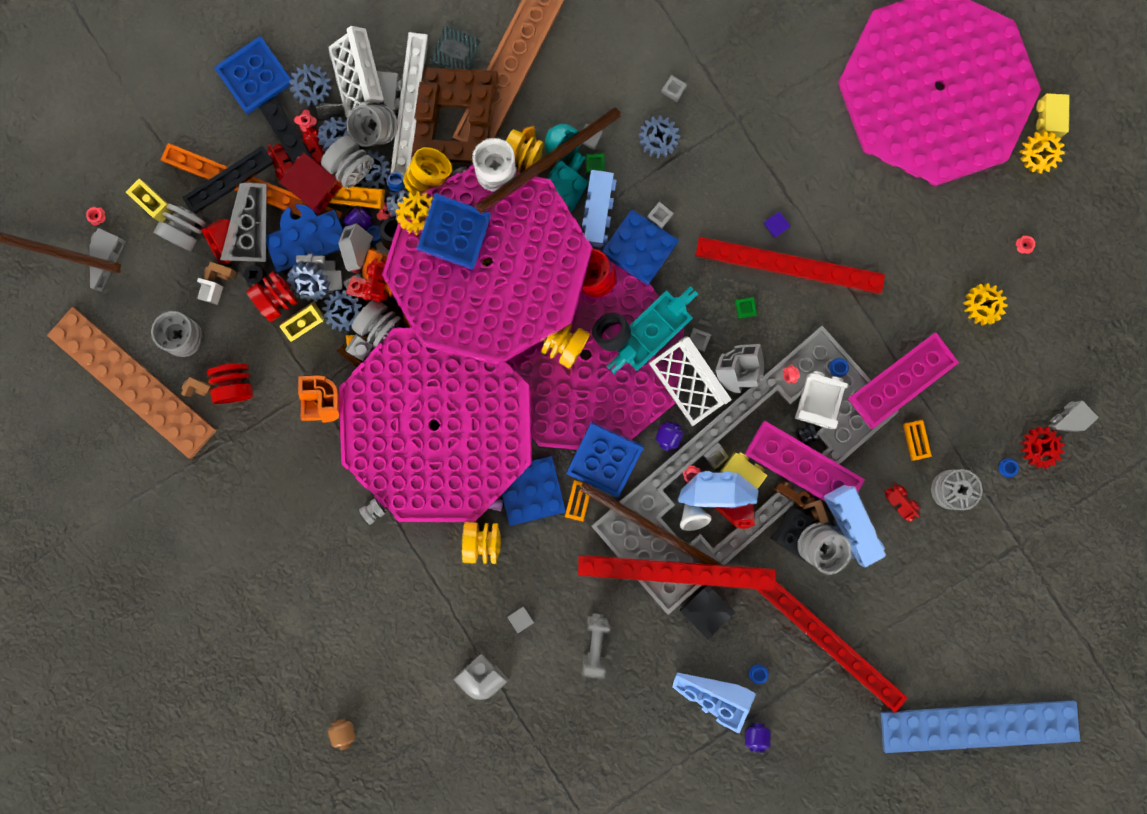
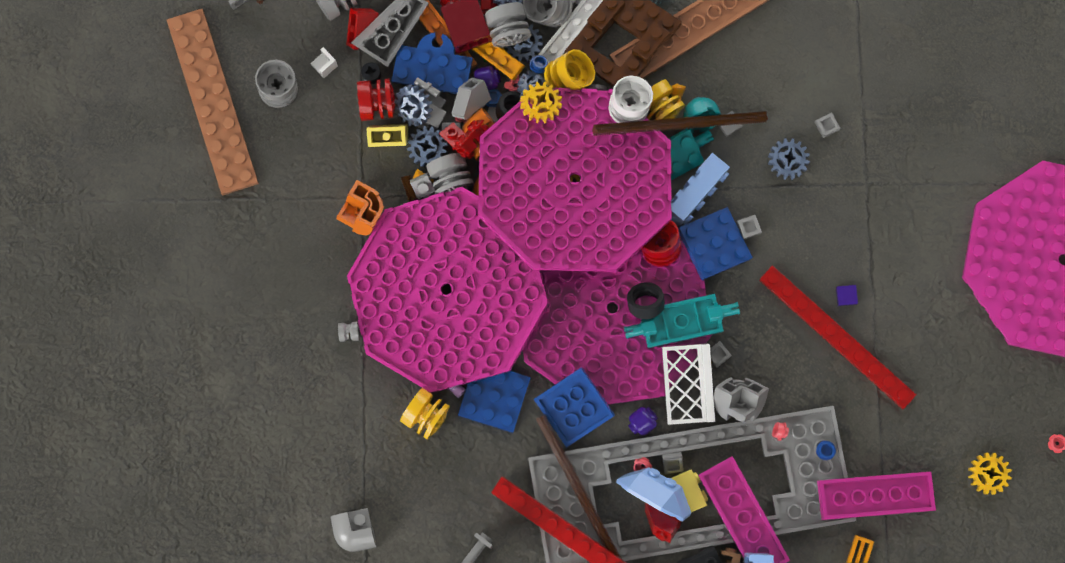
camera: 30 degrees right, 5 degrees down
(194, 384) = (268, 140): medium nougat bracket -> none
(218, 270) = (345, 53): medium nougat bracket -> none
(229, 382) = (294, 154): red wheel -> none
(341, 734) = (207, 505): medium nougat head -> none
(453, 231) = (562, 136): blue plate -> none
(520, 619) = (418, 501): light grey tile -> none
(567, 344) = (601, 288): yellow wheel -> none
(574, 516) = (518, 441): light orange tile -> none
(595, 162) = (720, 148): green tile -> none
(694, 518) = (621, 504): white hat -> none
(745, 308) = (776, 351): green tile -> none
(787, 490) = (716, 530): reddish brown plate -> none
(807, 434) = (763, 492): black wheel -> none
(821, 400) = (793, 469): white panel -> none

